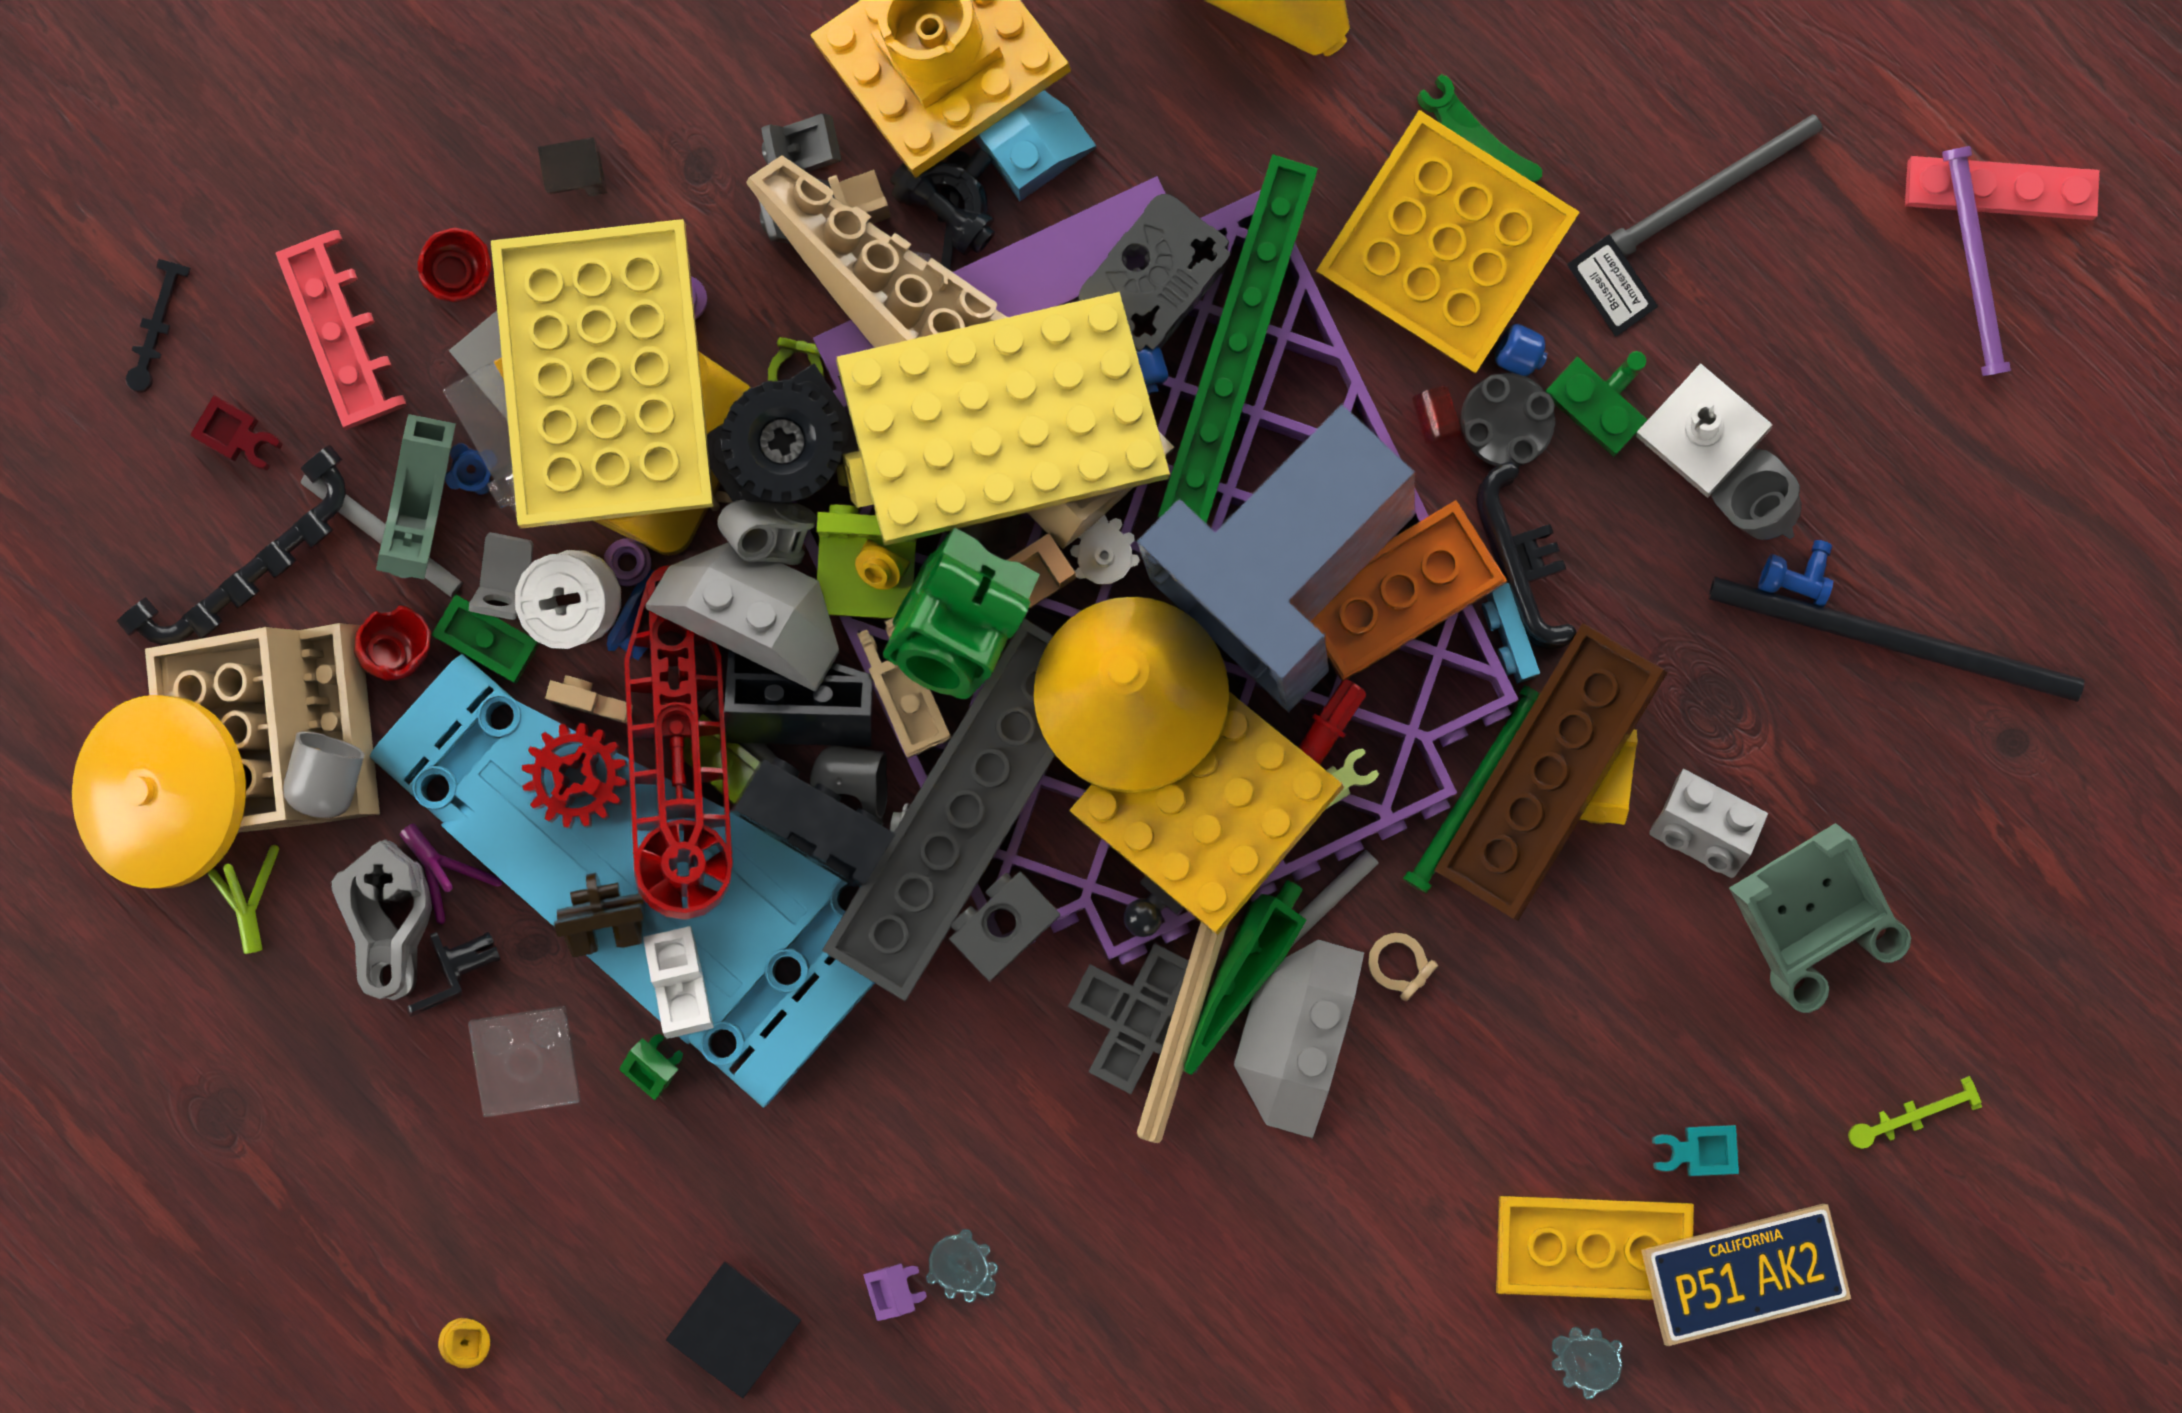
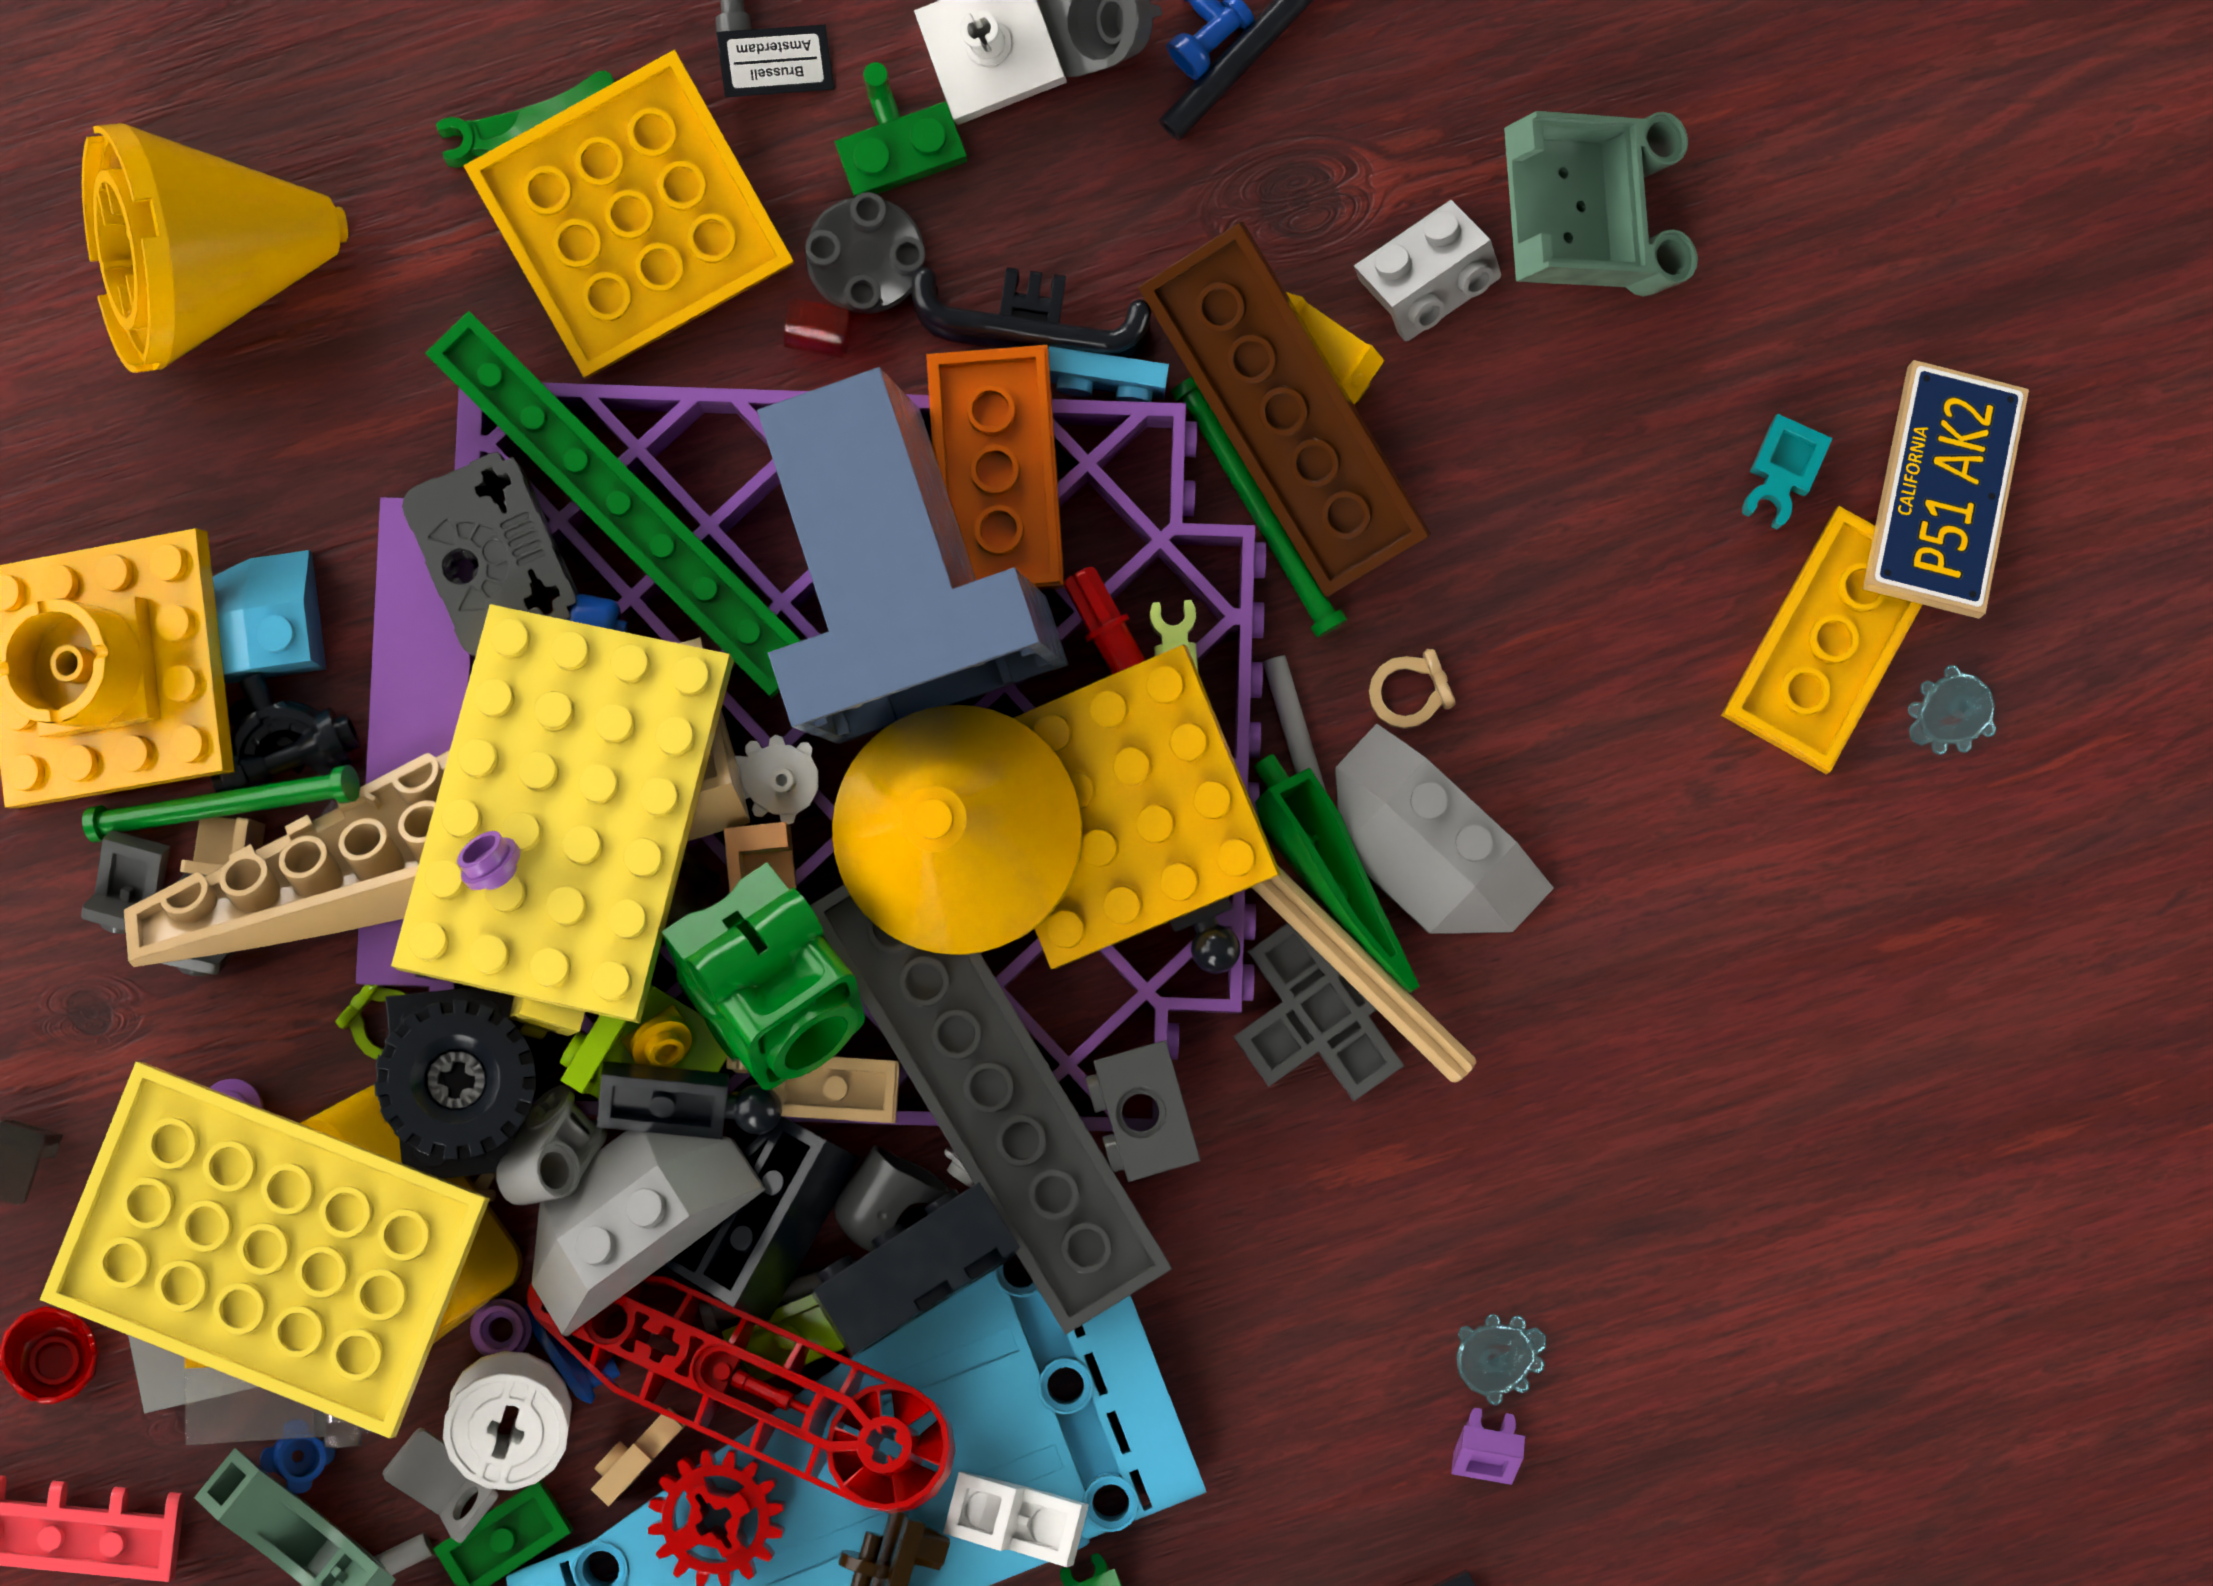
camera: 65 degrees left, 0 degrees up
(845, 602) = (681, 1102): none -> black plate
(941, 385) = (488, 861): none -> medium lavender plate
(943, 255) = (339, 785): none -> green bar
(1521, 350) = (794, 199): blue piece -> none
(1863, 1135) = (1856, 283): lime piece -> none

